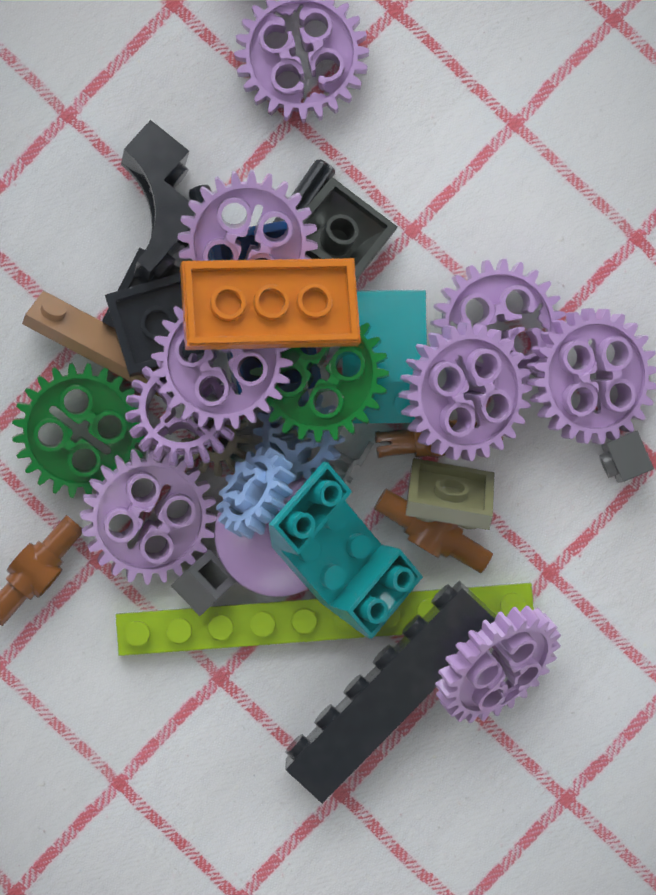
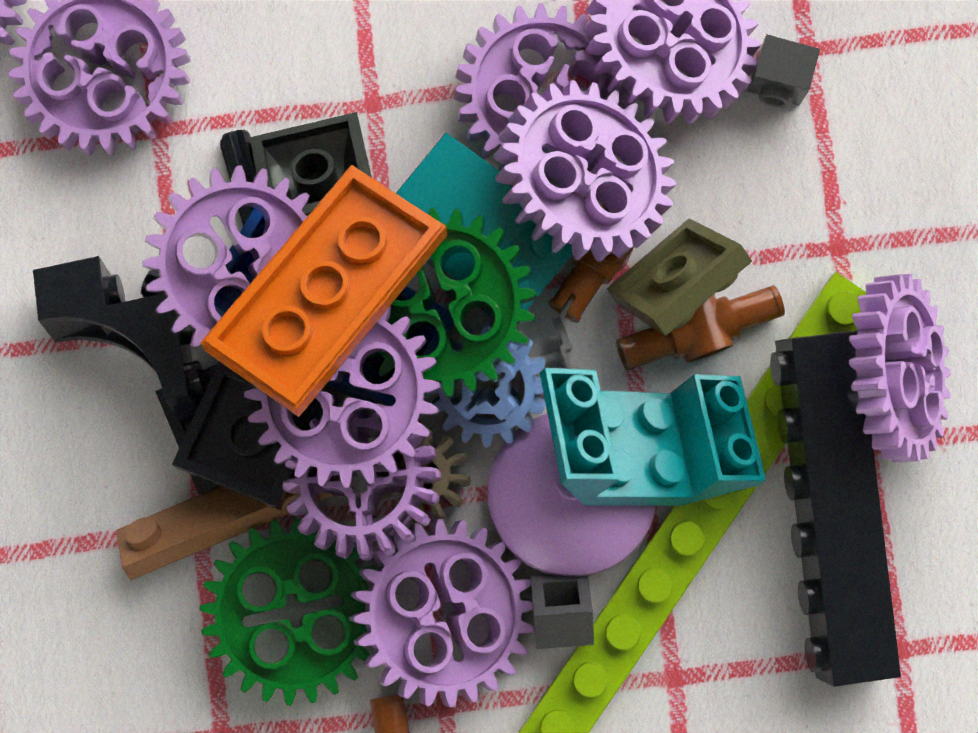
camera: 45 degrees left, 5 degrees down
(255, 492) = (512, 474): light blue gear -> none

